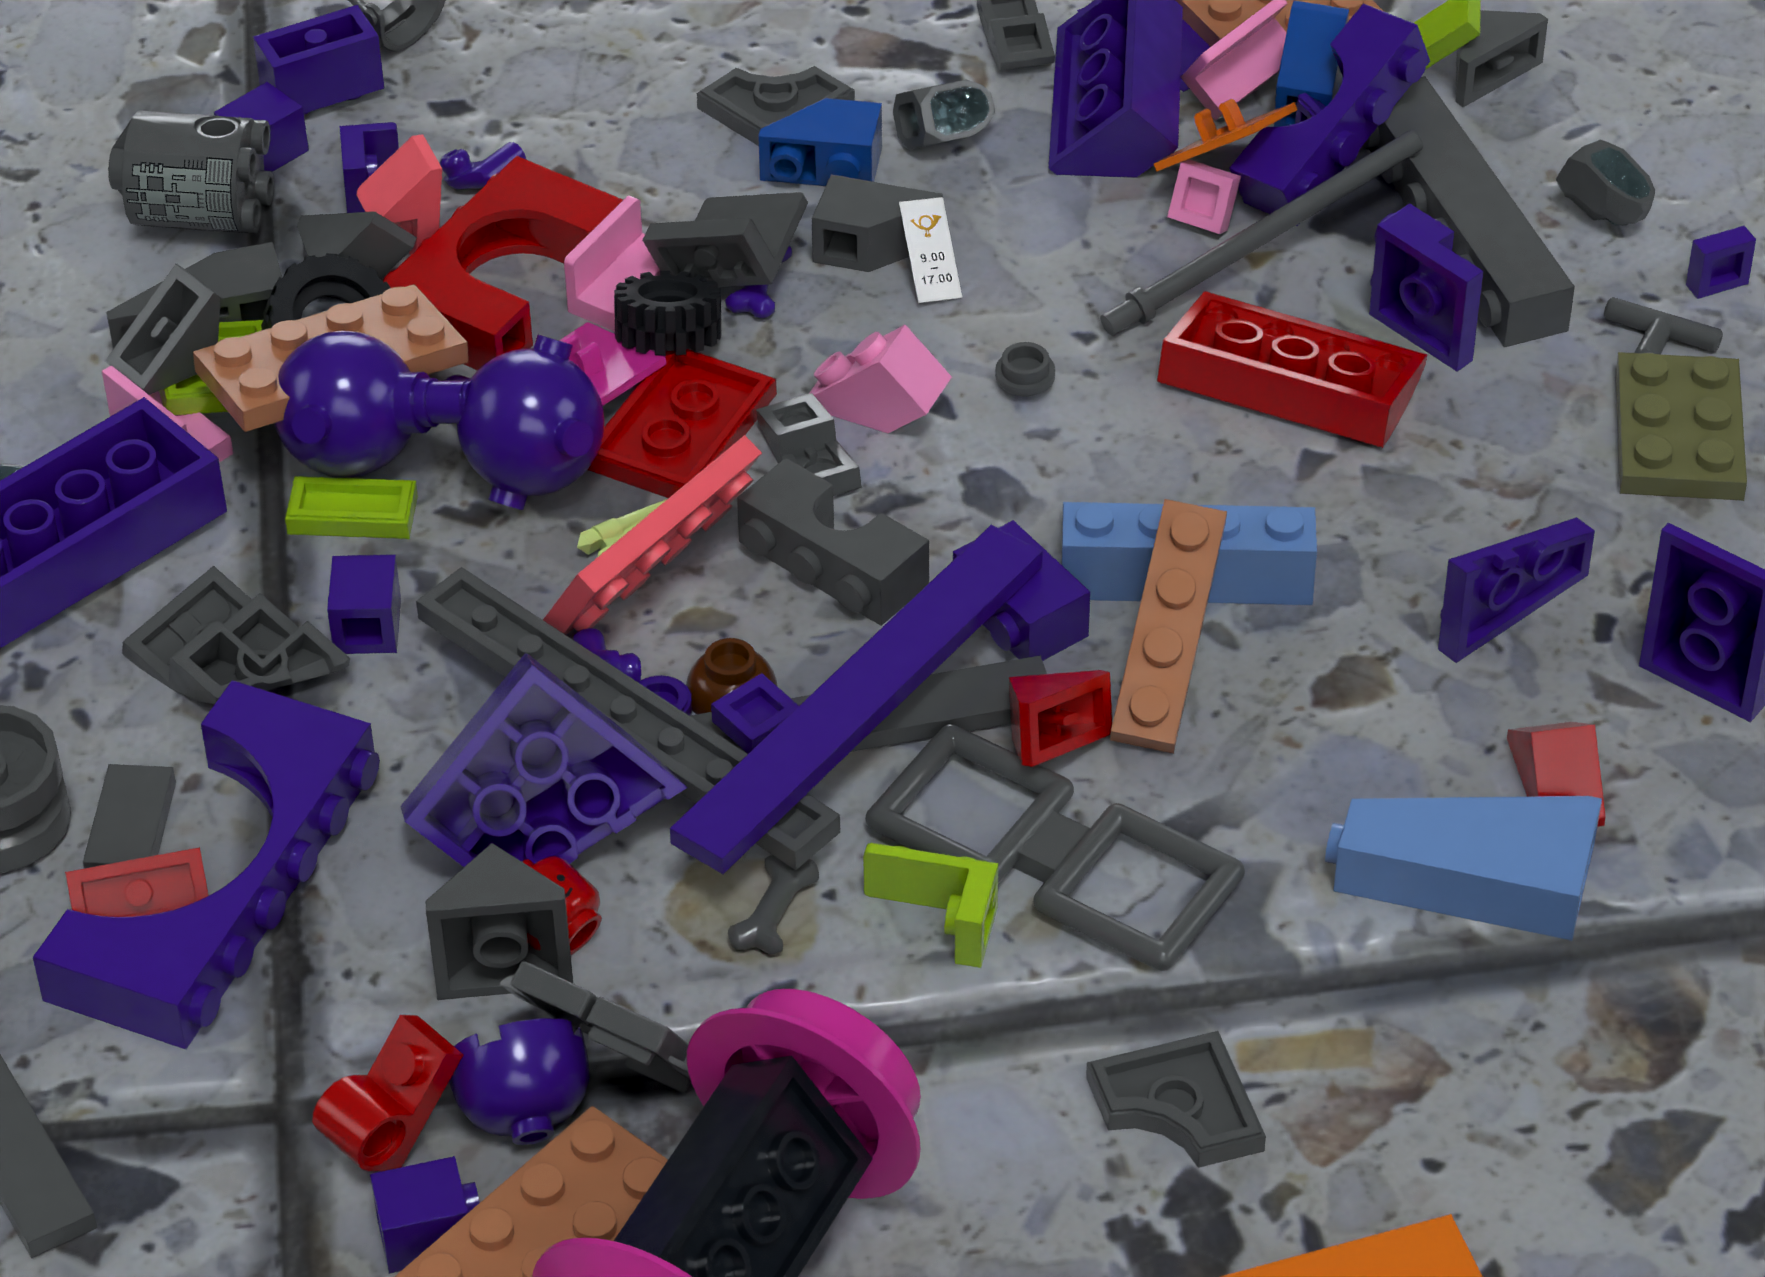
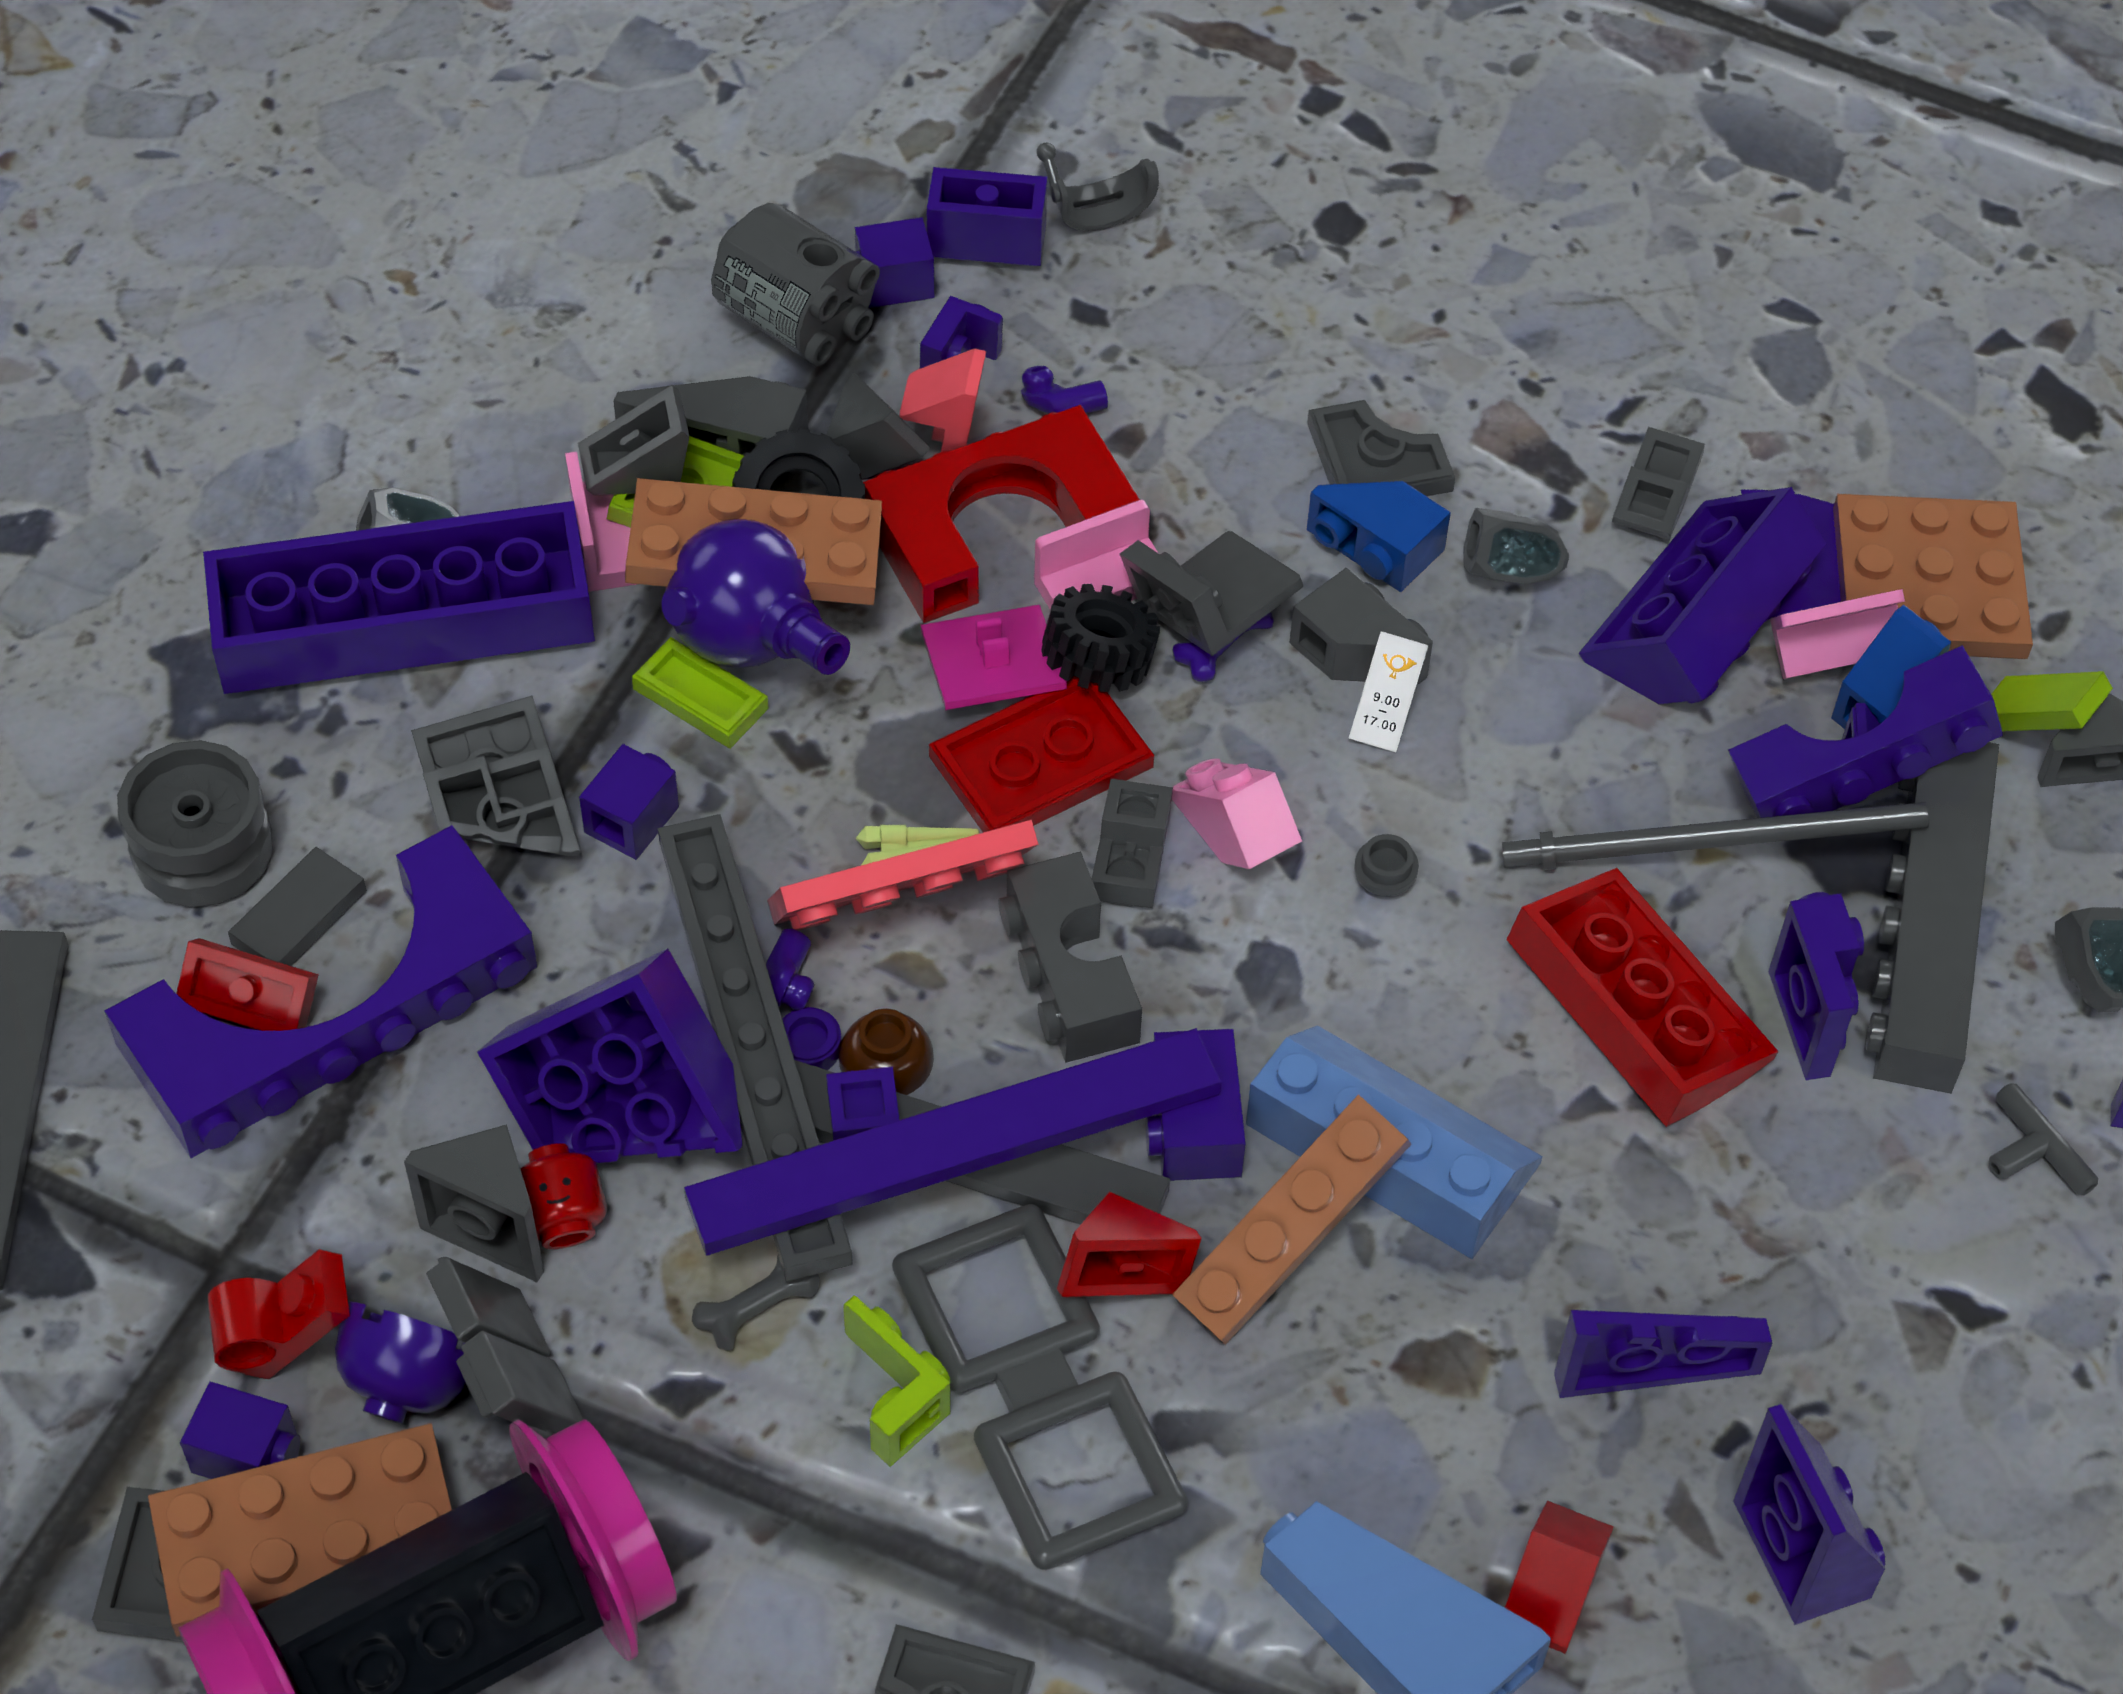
camera: 30 degrees right, 10 degrees up
(531, 422) = (881, 694): dark purple piece -> none
(1204, 196) = (1692, 764): bright pink tile -> none
(1234, 130) = (1748, 712): orange piece -> none
(1680, 426) = (1974, 1262): olive plate -> none

